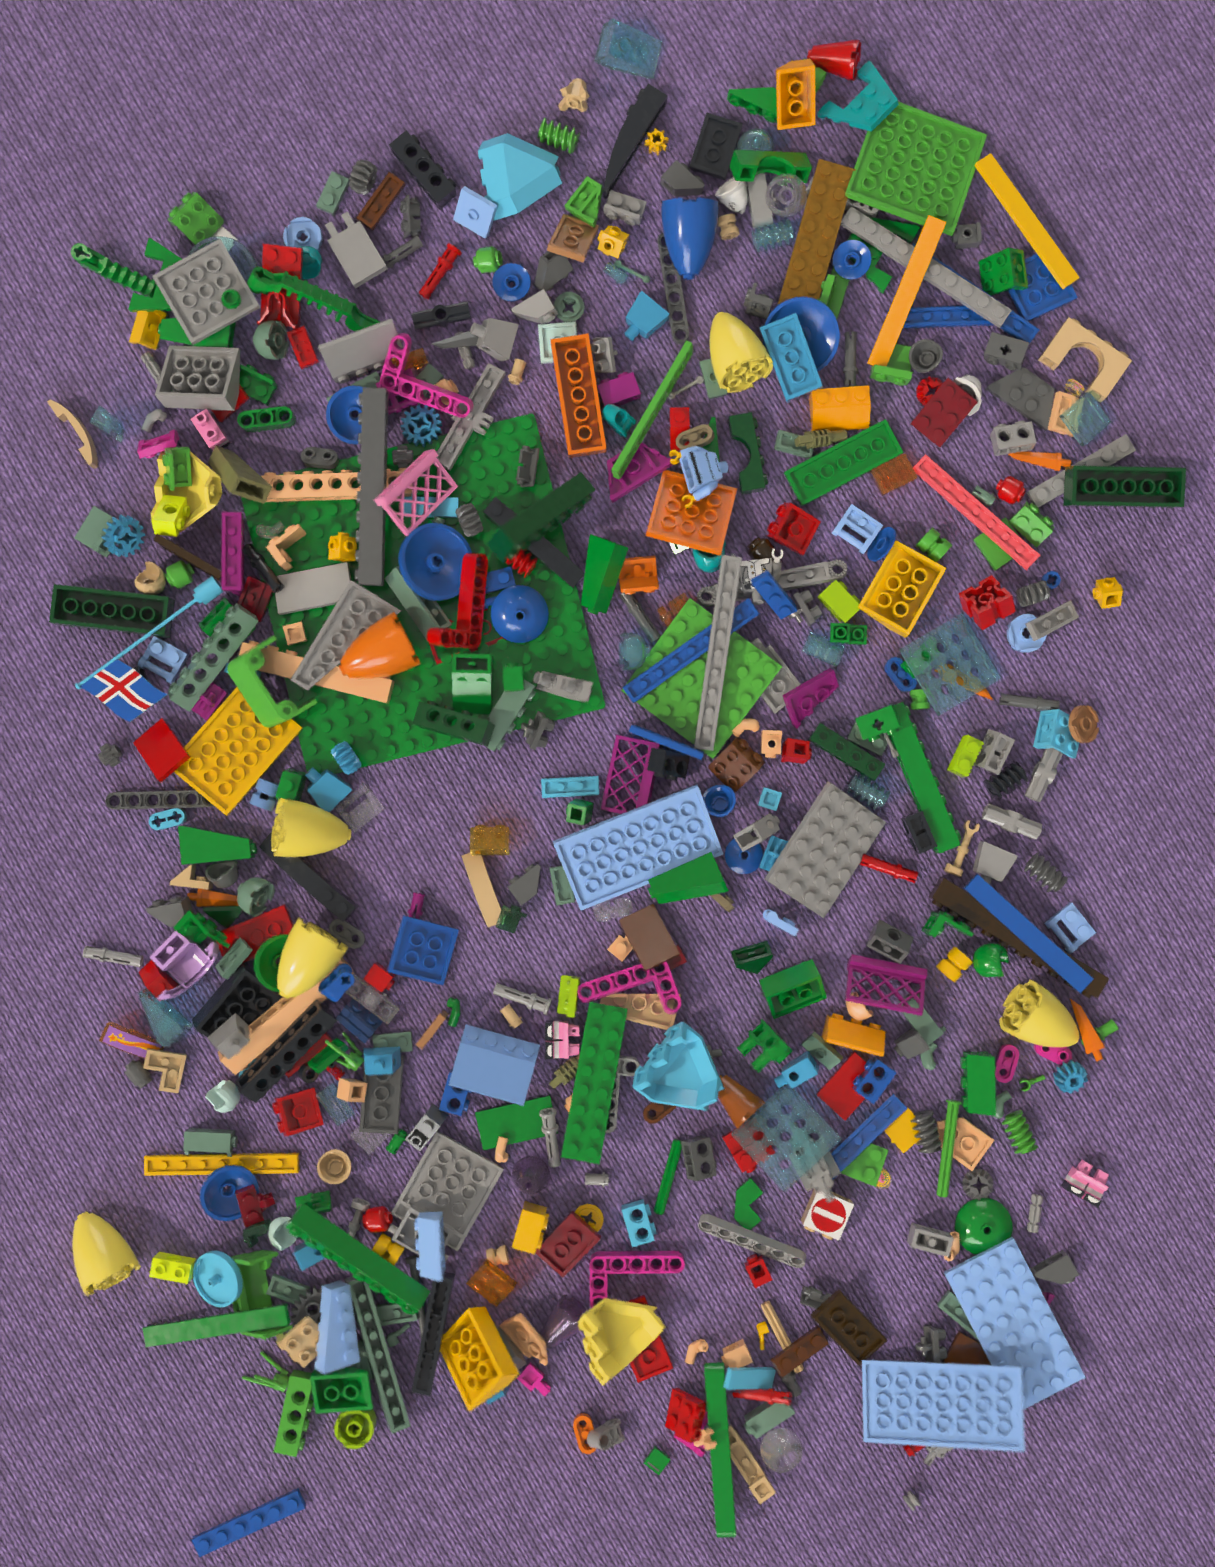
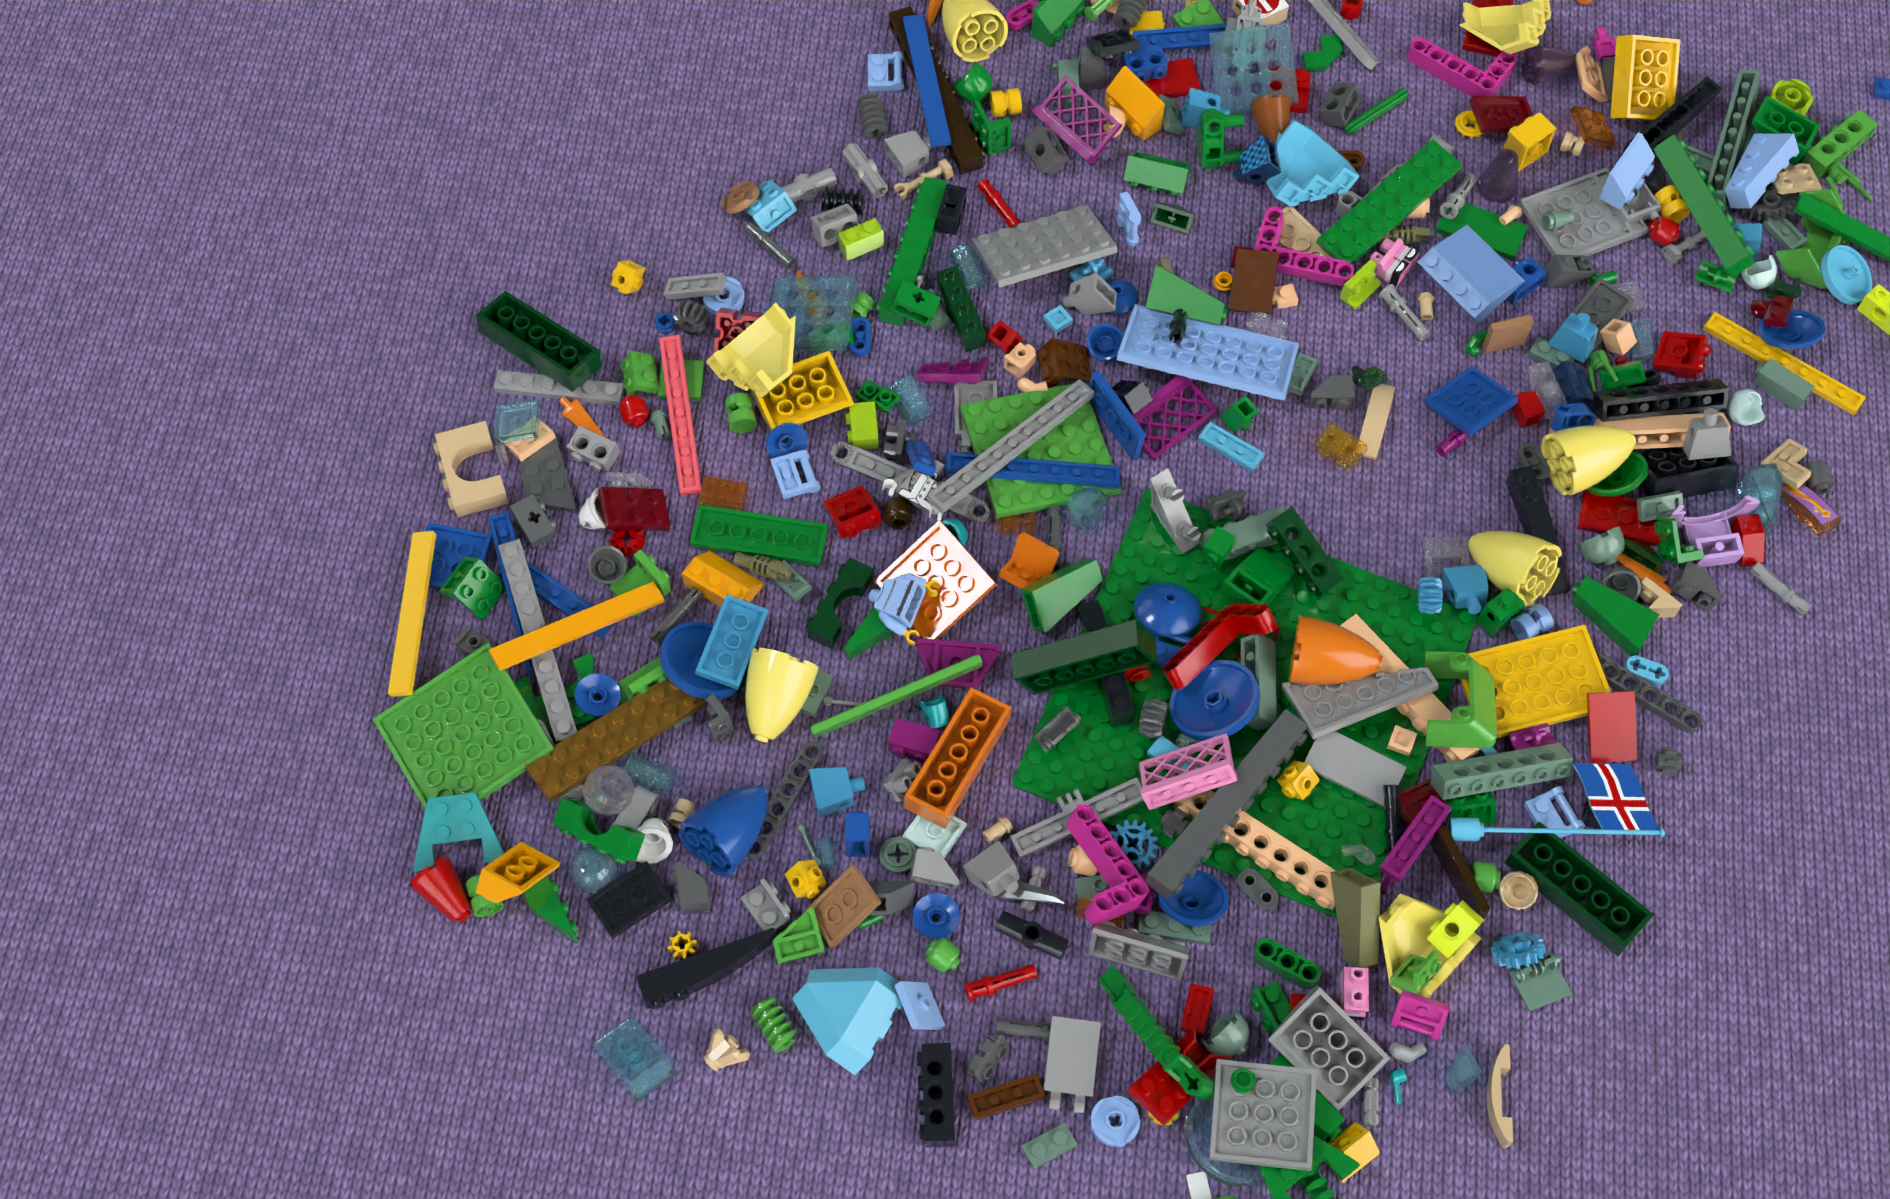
camera: 145 degrees left, 25 degrees down
(148, 398) = (1397, 1077): none -> teal hand
(279, 544) = (1356, 822): light nougat bracket -> none
(311, 262) = (1123, 1080): teal hair -> none
(334, 1167) = (1676, 290): tan helmet -> none
(363, 177) = (1006, 1129): dark grey gear -> none
(392, 1337) = (1710, 147): sand green hand -> none
(462, 1165) = (1555, 219): none -> sand green cone
(602, 293) = (857, 834): none -> blue brick
(635, 1223) = (1428, 95): medium azure brick -> none
(674, 849) = (1178, 326): none -> black pin
(678, 423) = (883, 669): red slope -> none
(678, 930) = (1223, 277): none -> light orange plate
(695, 436) = (879, 639): dark tan plate -> none
(720, 1050) = (1258, 162): none -> dark blue torso
(913, 1080) = (1112, 43): none -> black plate
(953, 585) = (760, 354): none -> light yellow panel
(971, 428) = (622, 479): none -> clear plate

